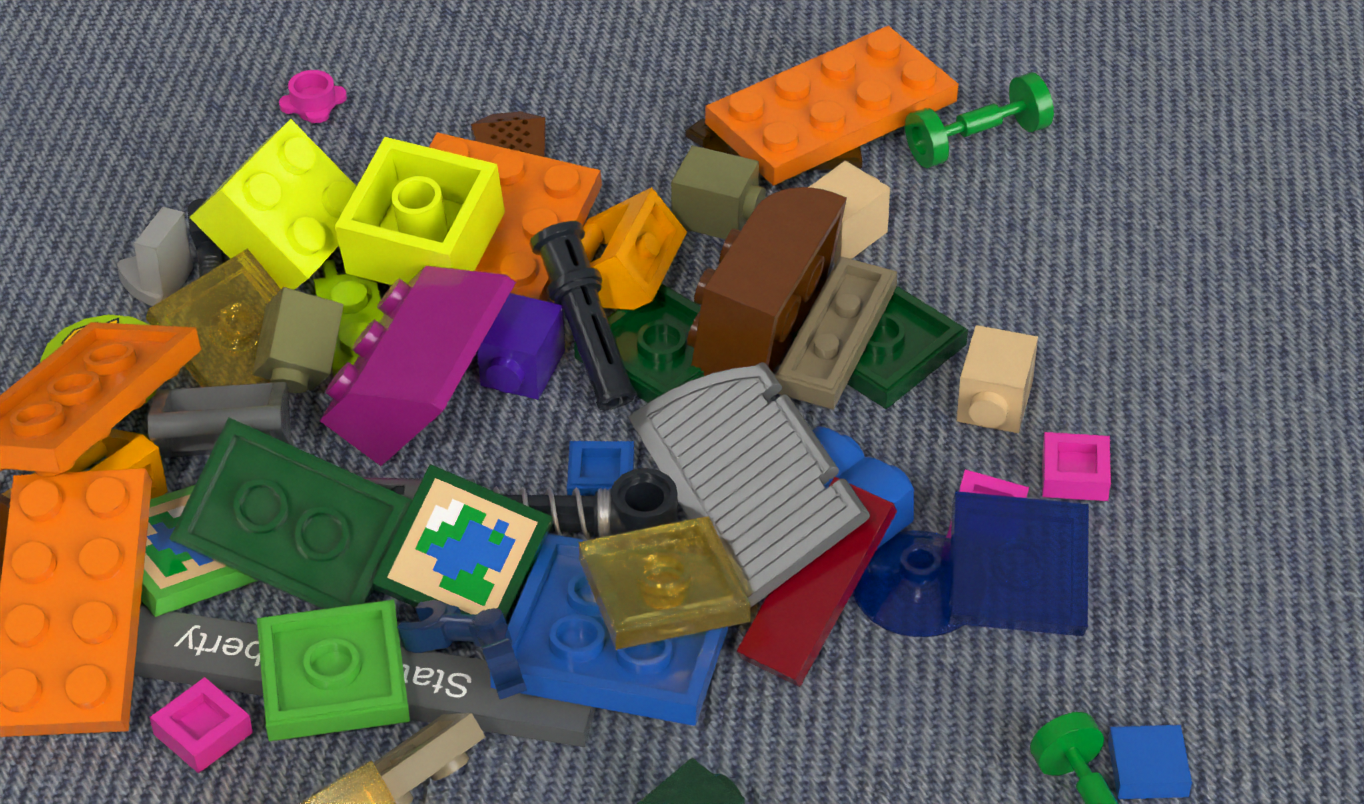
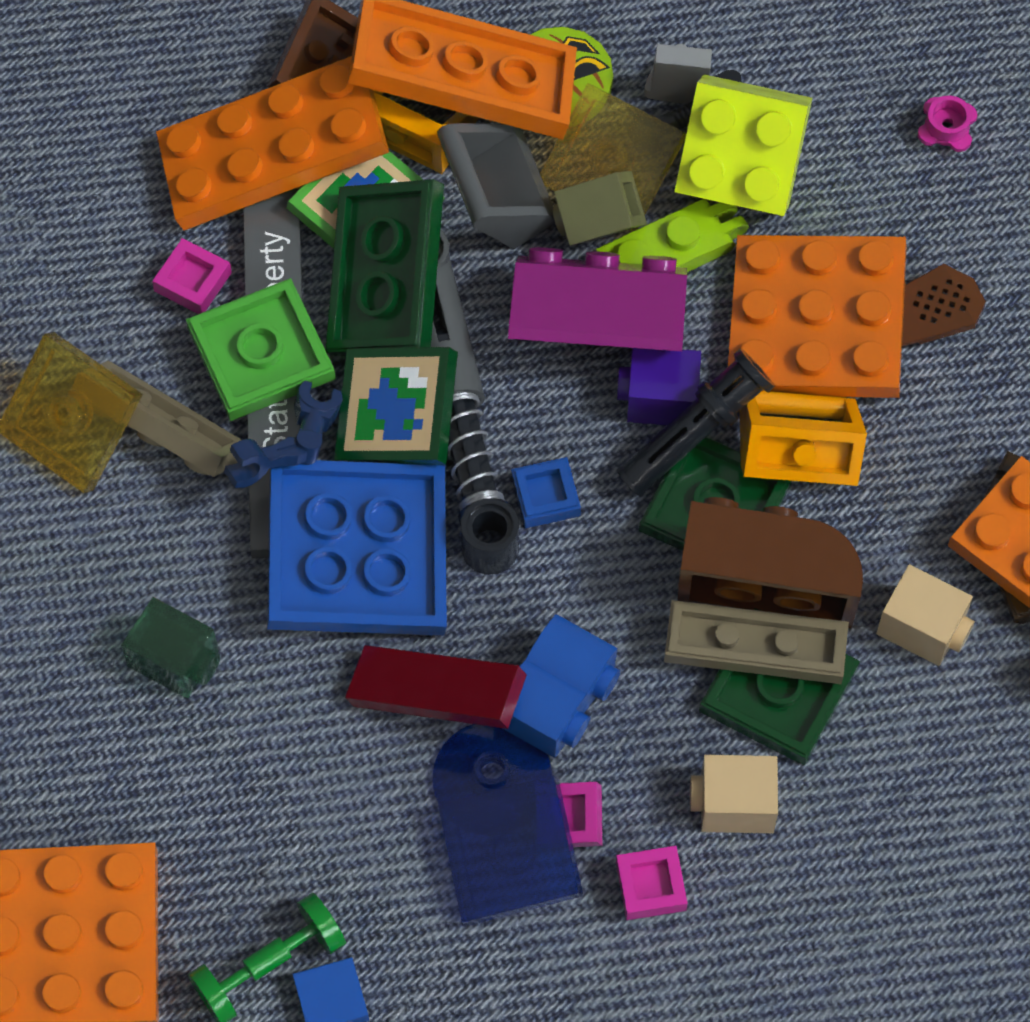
camera: 75 degrees right, 20 degrees up
(419, 212) = (749, 254): neon yellow brick -> none
(663, 582) = (388, 563): clear yellow plate -> none
(715, 191) = (916, 498): olive brick -> none
(751, 472) = (532, 600): piece -> none

